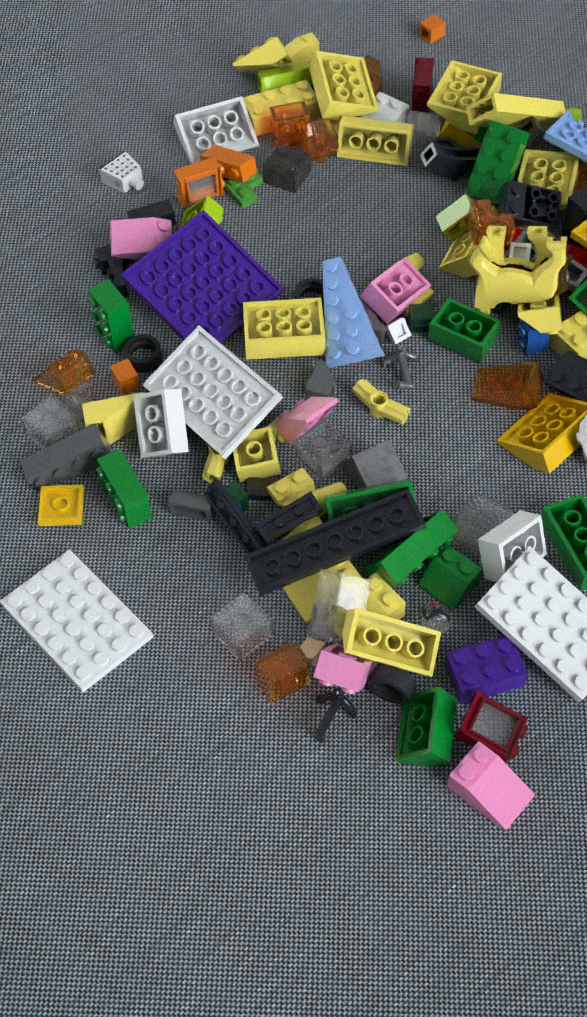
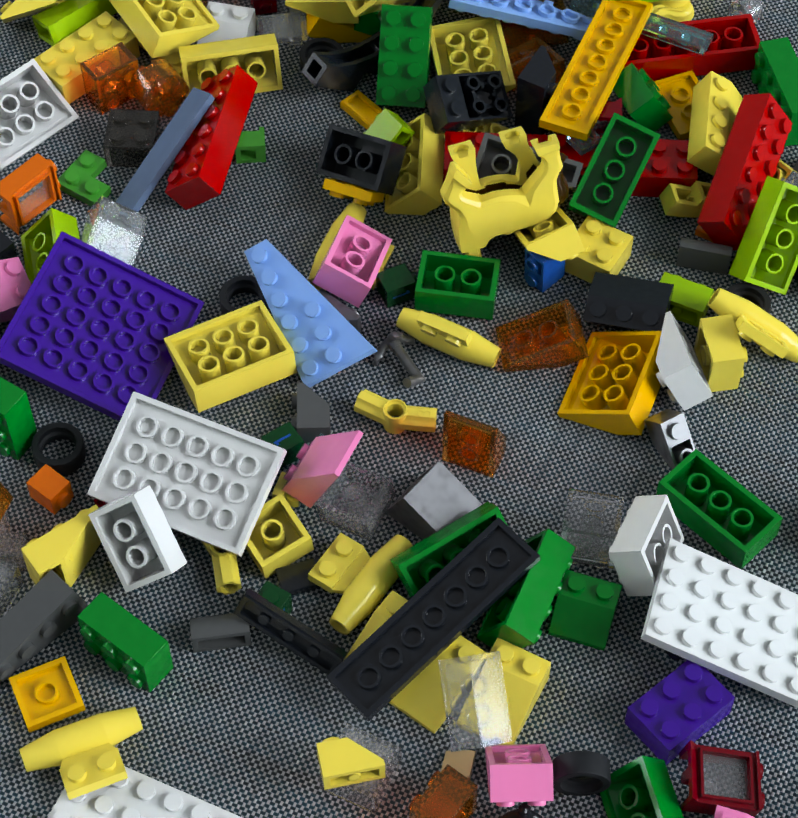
camera: 25 degrees left, 0 degrees up
(67, 548) = (85, 750): none -> light yellow plate
(227, 615) = (347, 763): none -> light yellow slope
(235, 164) = (69, 153): orange brick -> none
(244, 223) = (114, 229): none -> clear slope
(288, 517) = (359, 606): black plate -> none
(291, 395) = (286, 438): none -> dark green brick
(300, 182) = (165, 149): none -> sand blue tile
(338, 181) = (209, 150): none -> red brick
(364, 196) = (251, 147): none -> bright green brick
(390, 641) = (557, 720): light yellow slope -> none
(397, 330) = (374, 311): white plate -> none
(421, 247) = (347, 190): none -> yellow plate
(422, 438) = (472, 444): none -> clear orange slope
(434, 225) = (361, 159): none -> black brick
(435, 617) = (591, 669): clear head -> none
(442, 364) = (448, 337): none -> light yellow plate
(453, 191) = (360, 108): none -> yellow tile
(482, 216) = (430, 141): clear orange brick -> none
(520, 250) = (491, 164): white plate -> none
(570, 479) = (670, 436): none -> flat silver slope

